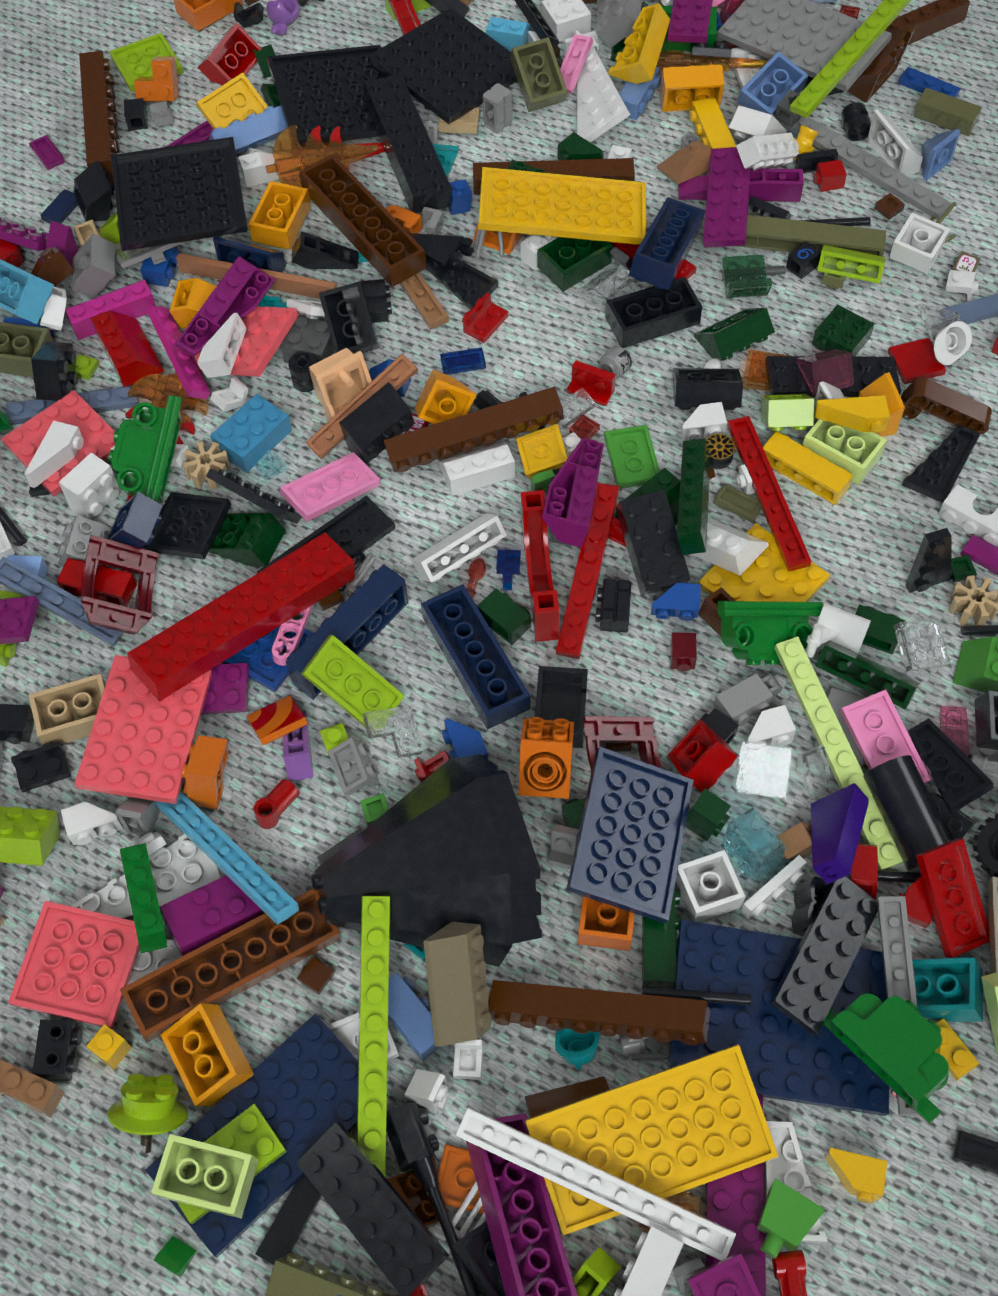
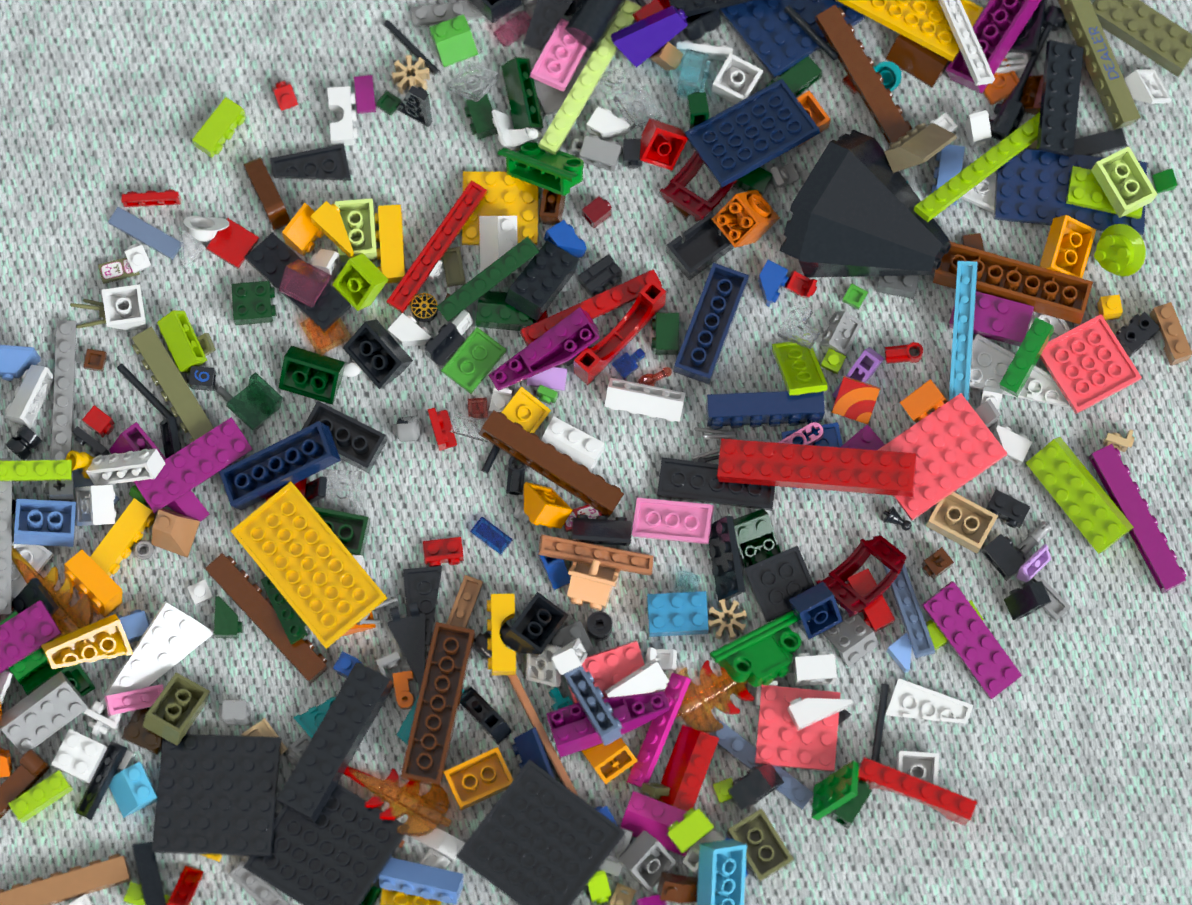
camera: 135 degrees left, 15 degrees up
(63, 662) = (937, 563): none -> reddish brown brick
(71, 287) = (689, 830): none -> lime brick
(137, 312) = (655, 790): none -> olive plate
(235, 287) = (593, 706): none -> sand blue brick
(293, 309) = (569, 657): none -> white slope
(389, 306) = (502, 658): none -> yellow arch
(667, 439) = (443, 344): none -> black bracket
(674, 464) = (462, 322): none -> white plate

